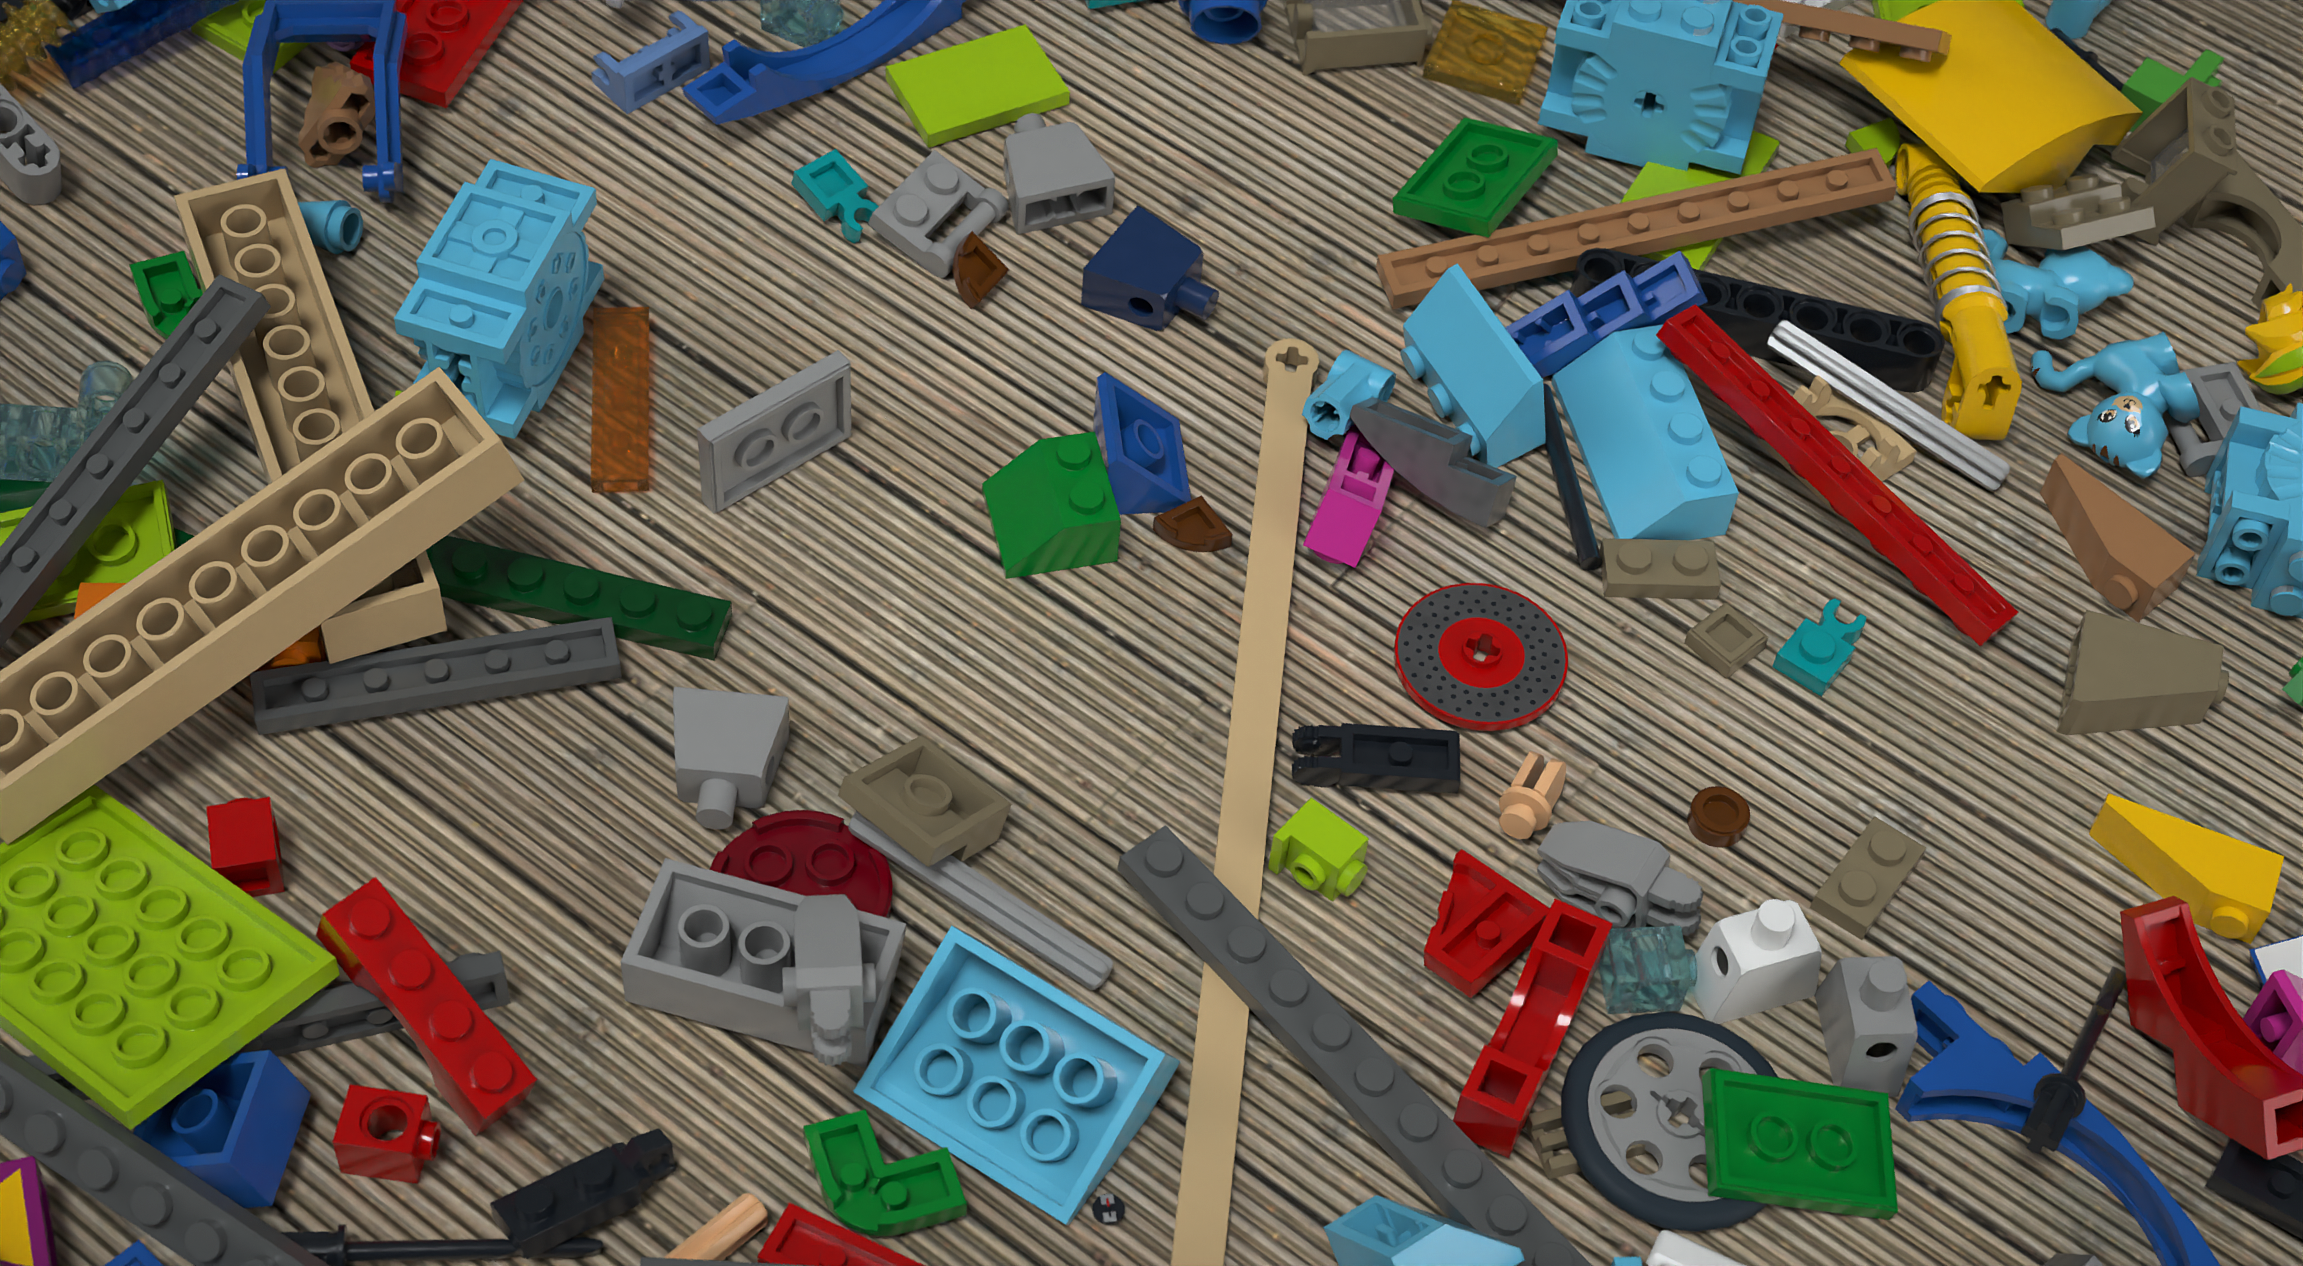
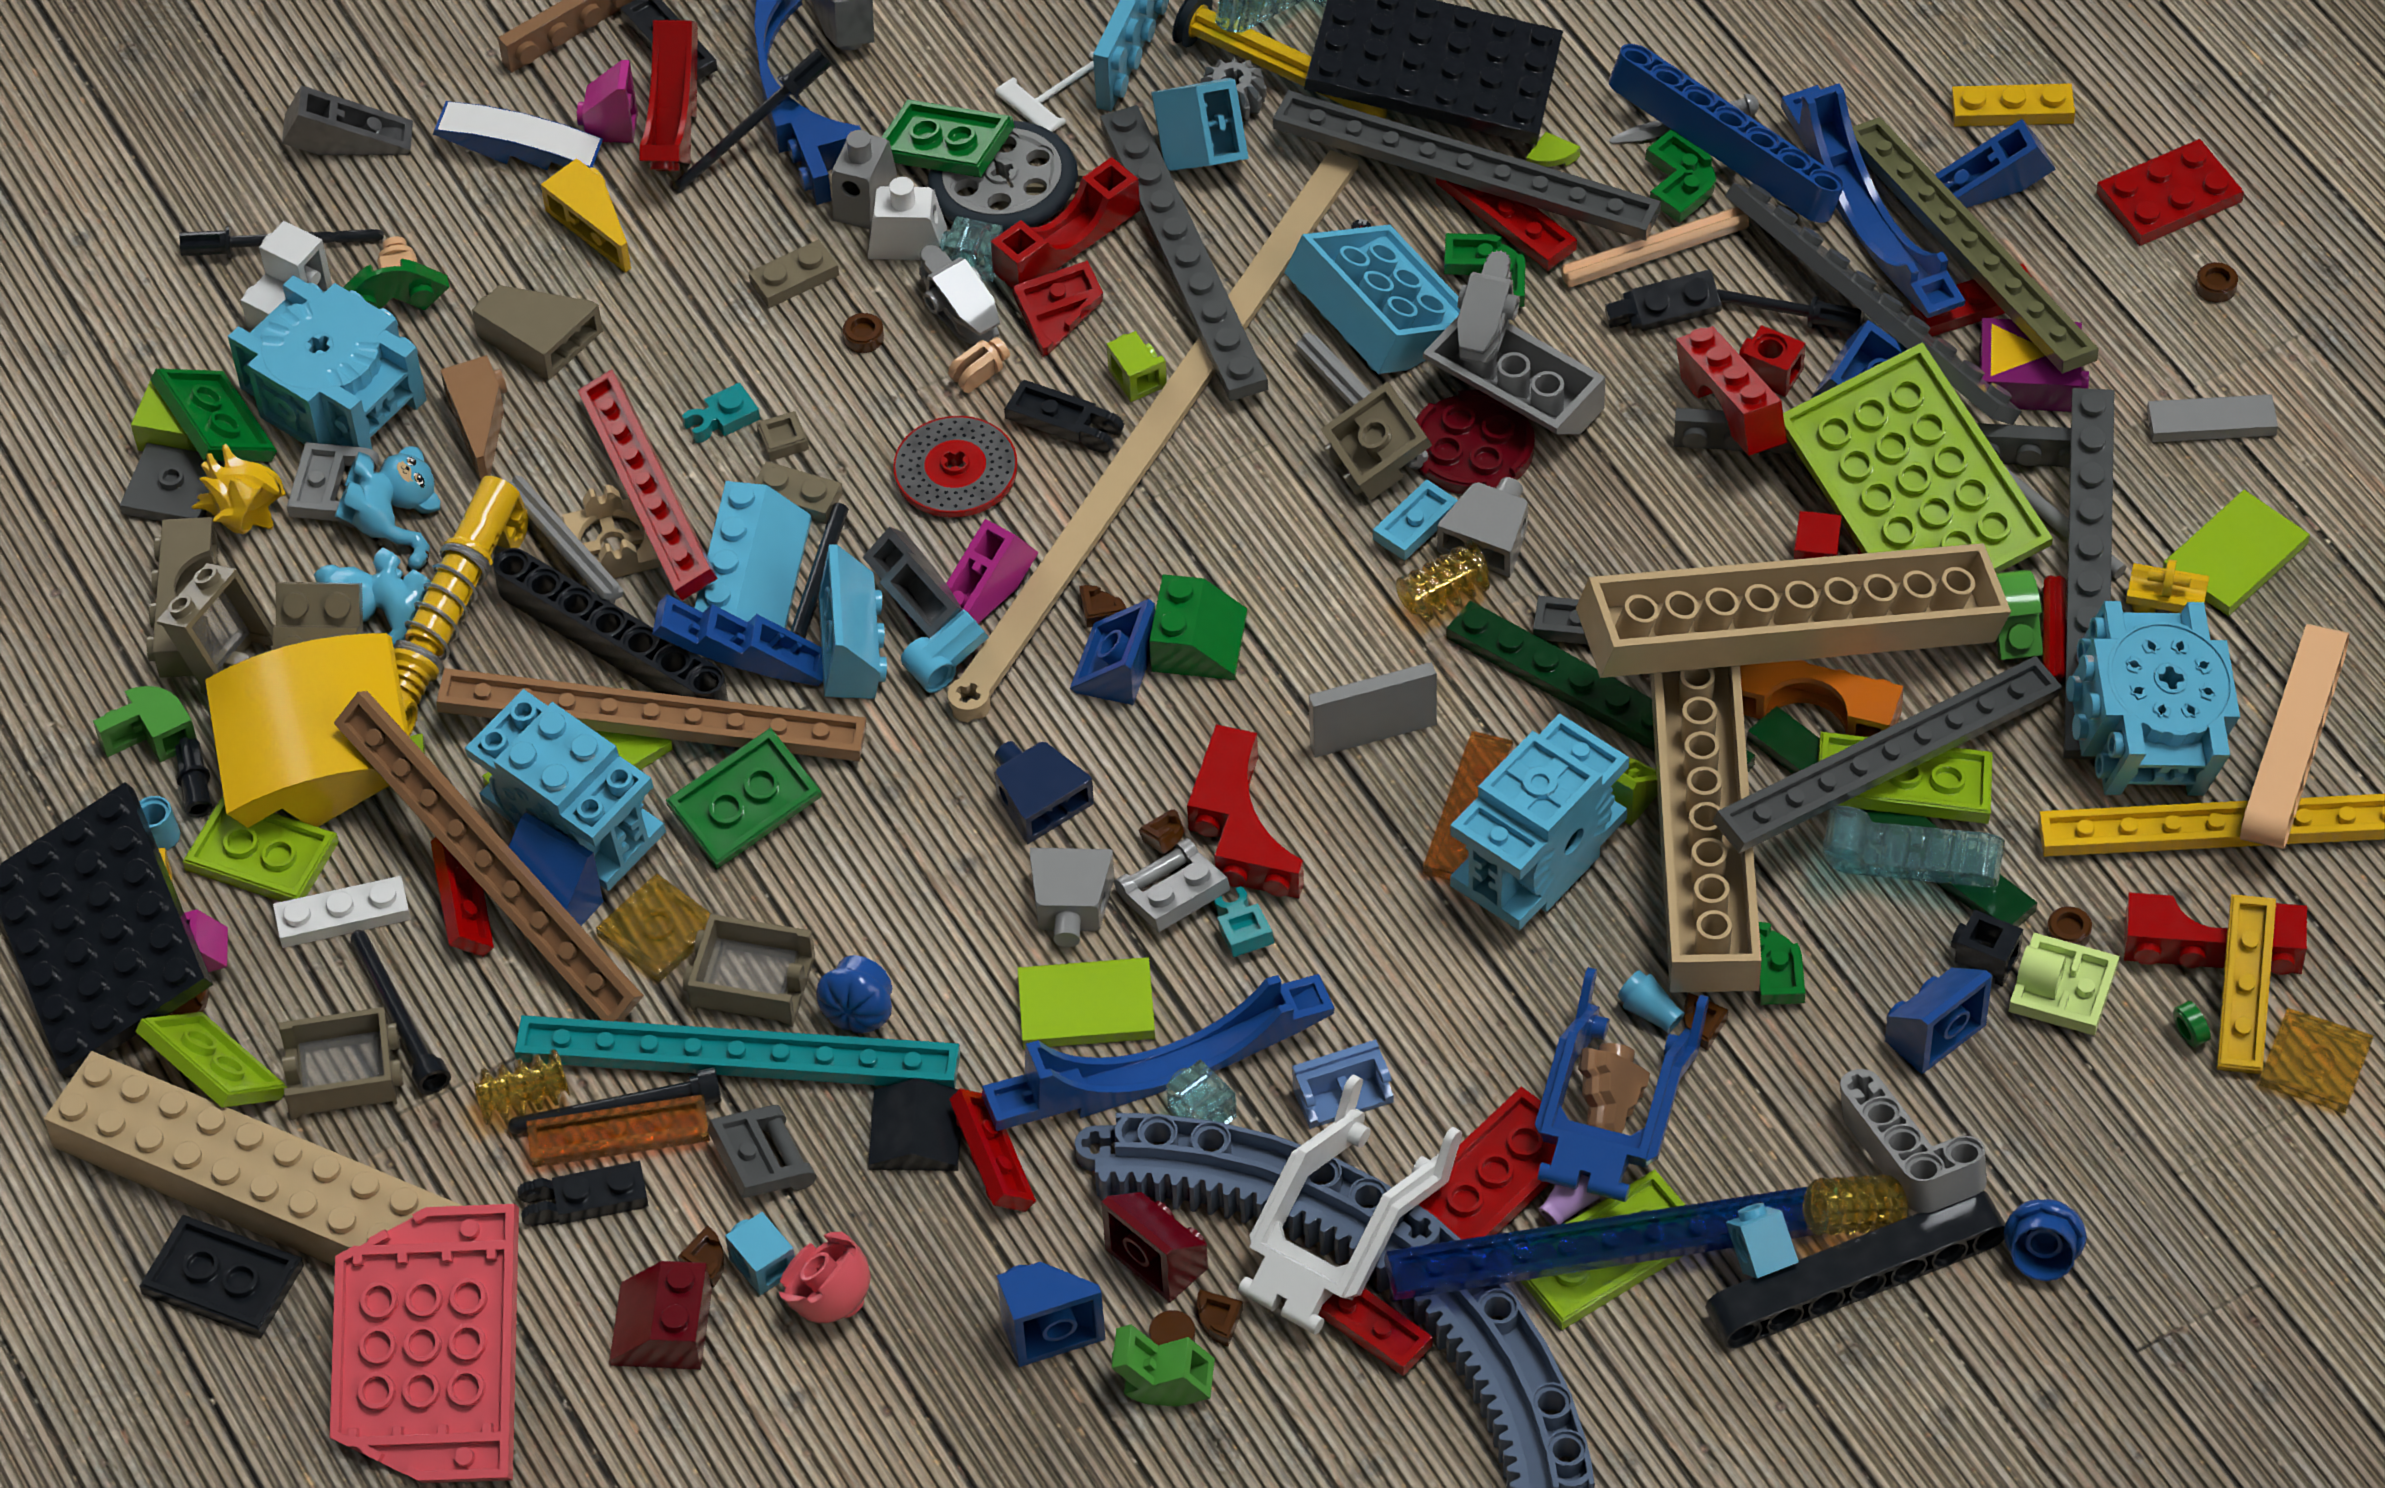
camera: 150 degrees left, 0 degrees up
(755, 641) = (1444, 581): none -> clear yellow piece
(830, 739) = (1413, 520): none -> medium azure plate
(910, 304) = (1223, 809): none -> red arch

